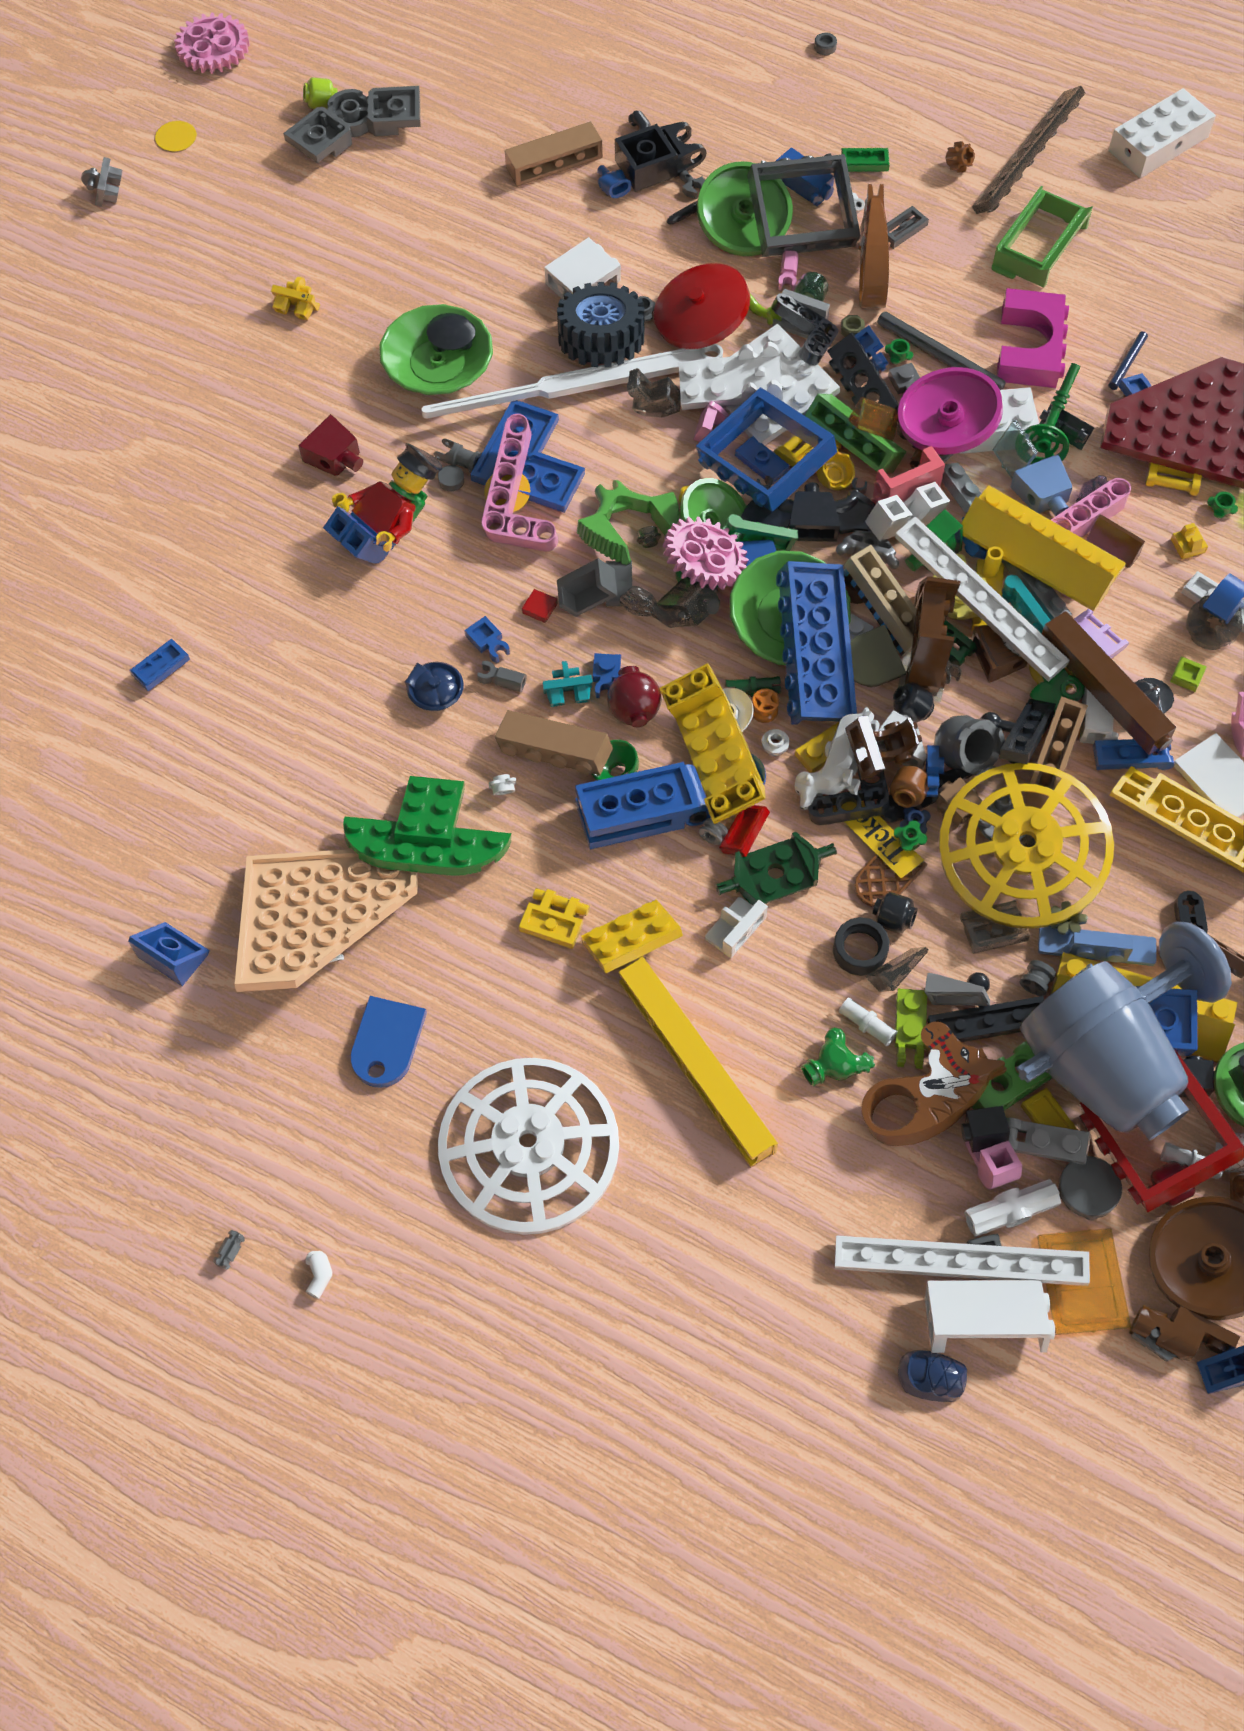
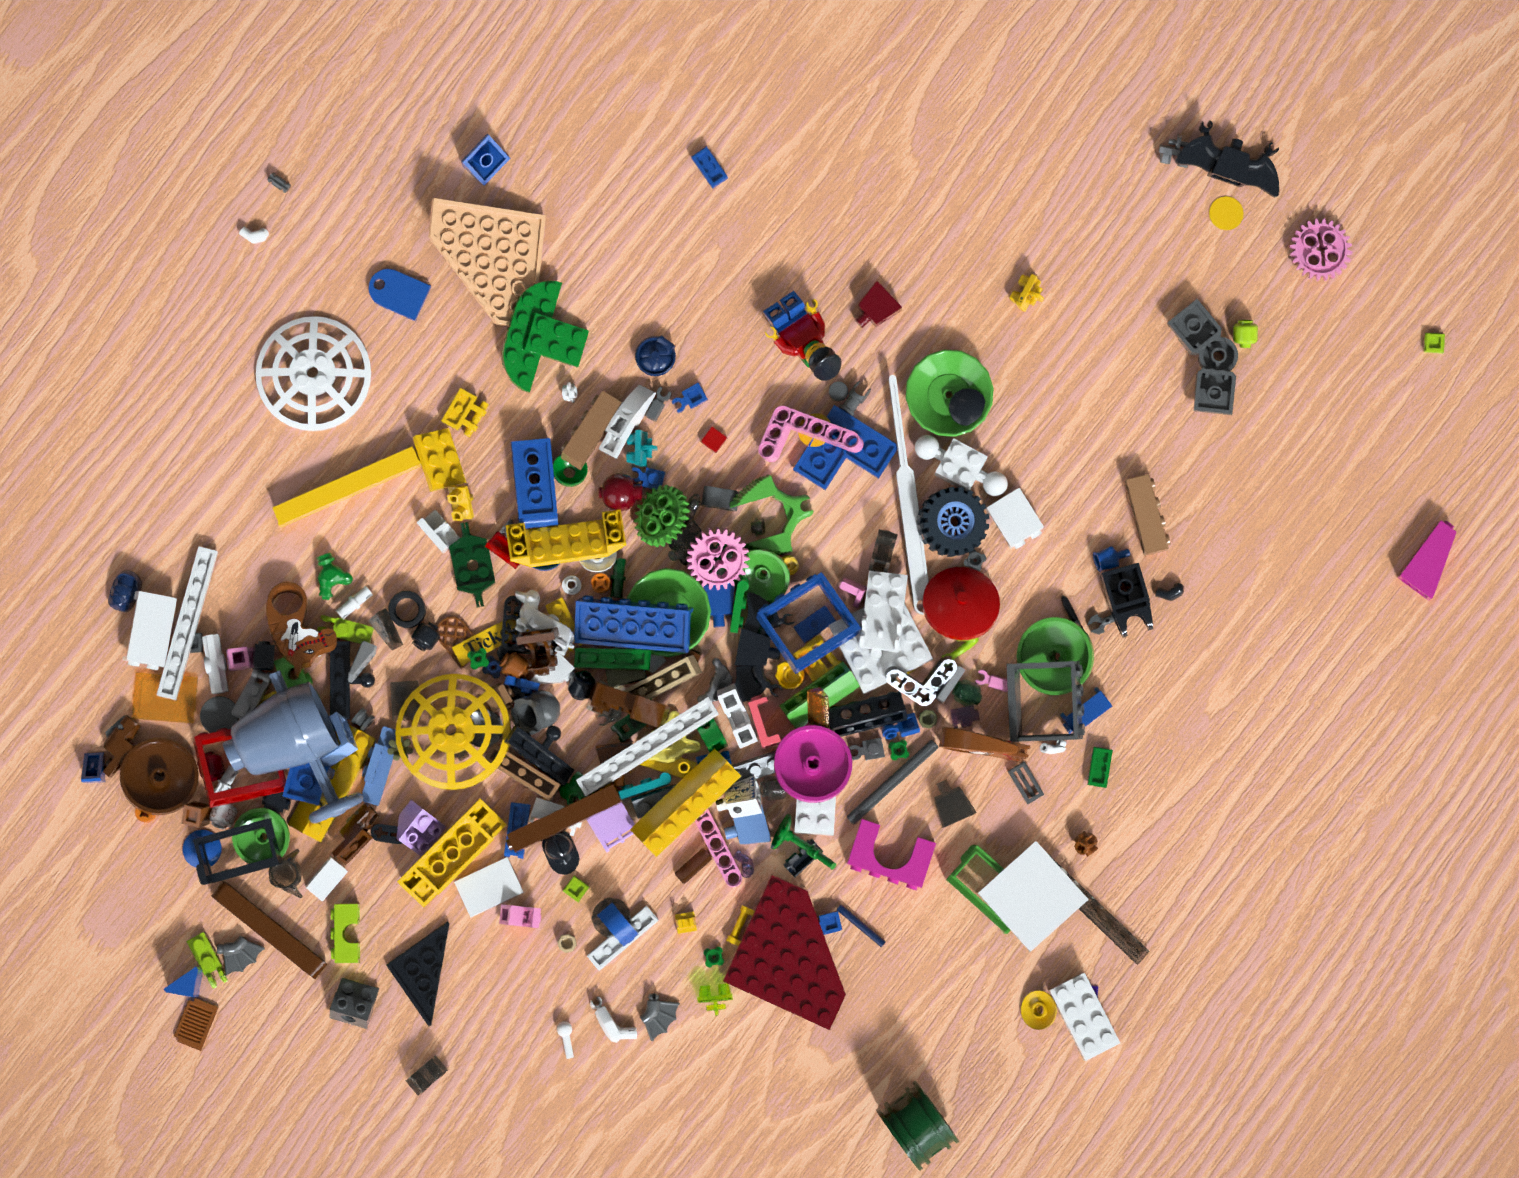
camera: 100 degrees right, 20 degrees up
(114, 128) = (1231, 163): none -> black torso
(526, 332) = (961, 465): none -> white brick
(531, 701) = (624, 420): none -> white slope
(586, 587) = (713, 472): dark grey panel -> none
(645, 614) = (661, 515): none -> bright green gear
(690, 895) = (461, 502): none -> yellow hips
(825, 43) = (1240, 764): dark grey tile -> none
(841, 291) = (964, 716): none -> brick
(868, 665) = (612, 659): none -> green plate
(954, 287) = (952, 805): none -> clear smoke torso
(986, 467) = (771, 789): none -> clear smoke head
(1014, 449) = (779, 809): clear light blue piece -> none
(1016, 482) = (742, 798): none -> white torso
(1041, 184) = (1033, 896): none -> white tile
(1171, 877) = (418, 828): none -> lavender slope
(1178, 168) = (1031, 1010): none -> yellow dish

